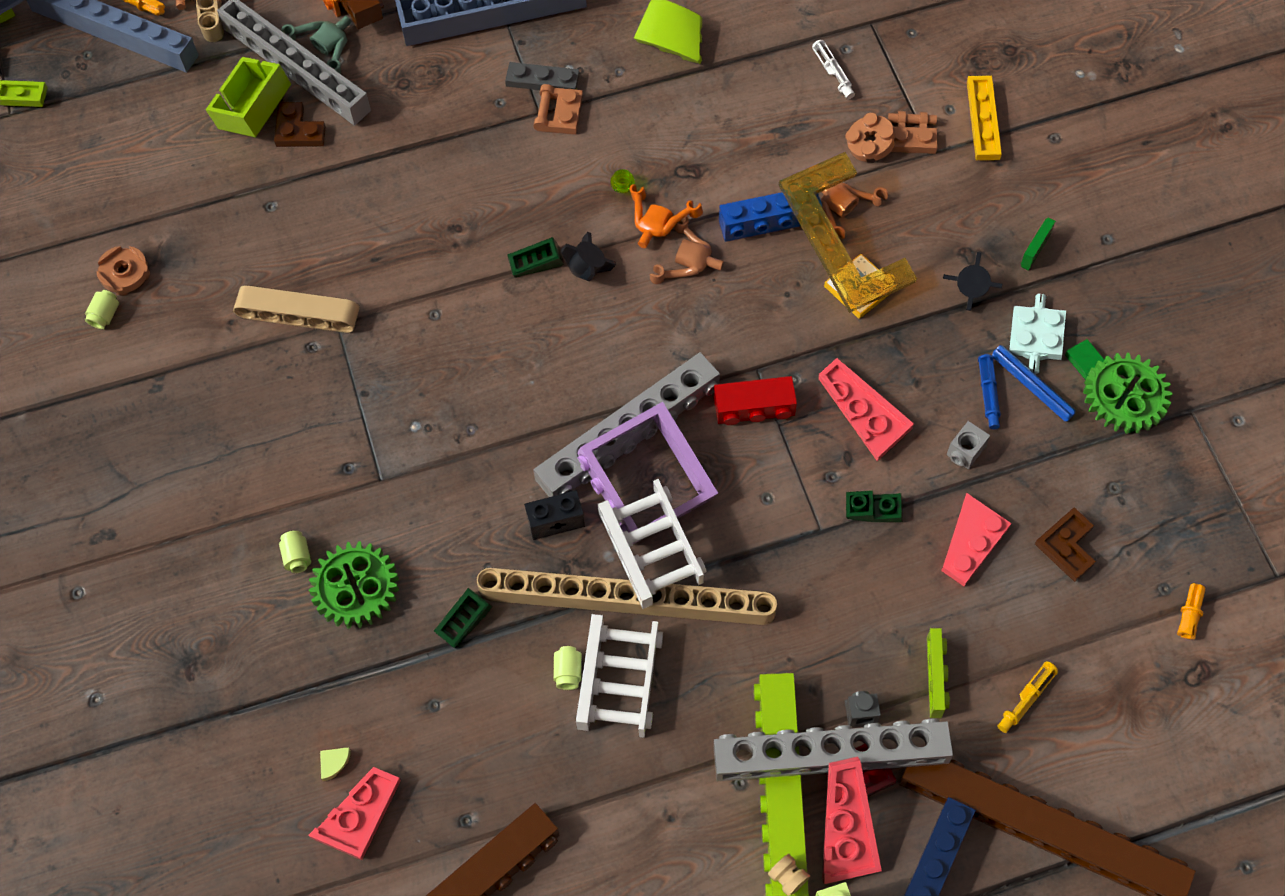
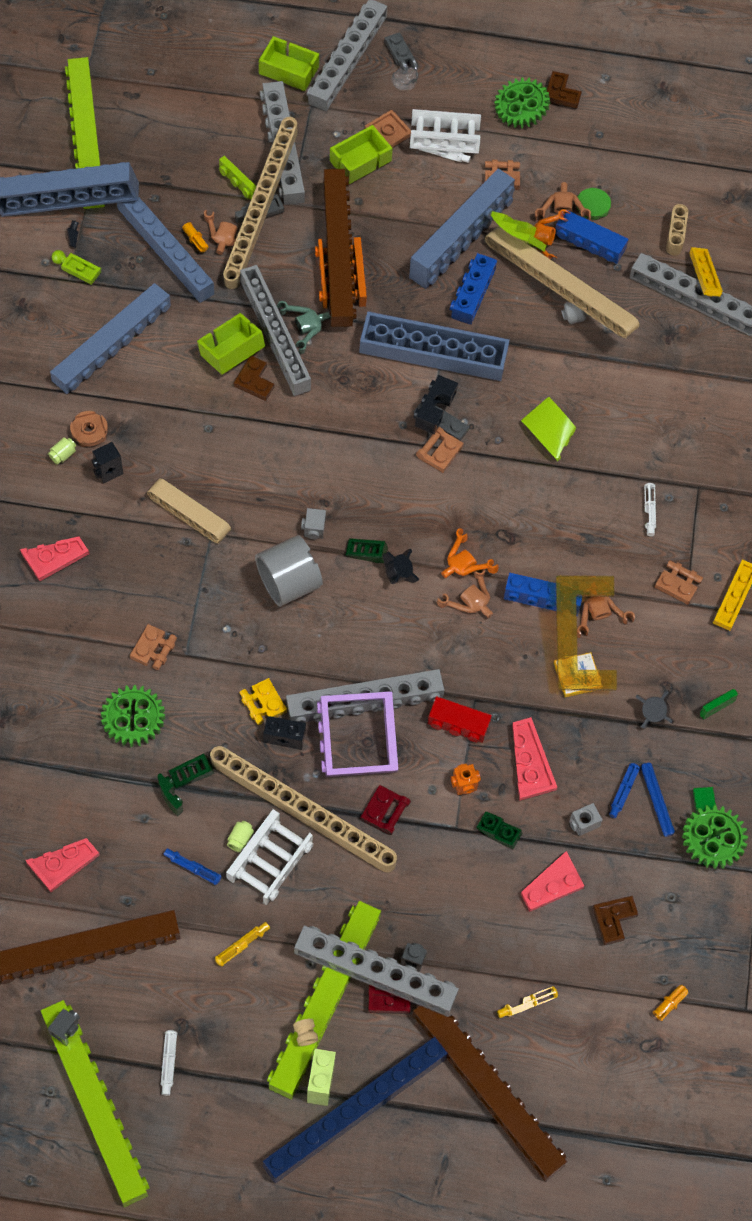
camera: 20 degrees right, 0 degrees up
(96, 156) = (110, 338): none -> sand blue brick
(155, 440) = (54, 557): none -> coral wing
(166, 296) = (107, 462): none -> black brick
(294, 551) = (106, 675): yellowish green brick -> none
(328, 490) = (148, 644): none -> nougat plate
(333, 762) = (63, 823): yellowish green tile -> none
(444, 654) = (167, 790): none -> dark green slope
(457, 255) = (314, 523): none -> light grey brick
(457, 320) = (288, 570): none -> light grey brick
(511, 485) = (268, 699): none -> yellow plate
(527, 74) = (440, 392): none -> black arch
(528, 735) = (196, 868): none -> blue piece
(622, 176) = (455, 518): clear neon green plate -> none
(634, 564) = (315, 790): white fence -> none
(641, 802) = (241, 944): none -> yellow piece
(716, 549) = (380, 805): none -> dark red plate
(802, 465) = (465, 779): none -> orange brick
(849, 830) = (360, 1025): coral wing -> none
(865, 127) = (641, 564): nougat plate -> none
(937, 673) = (476, 958): lime plate -> none
(1037, 333) = (681, 766): light aqua plate -> none

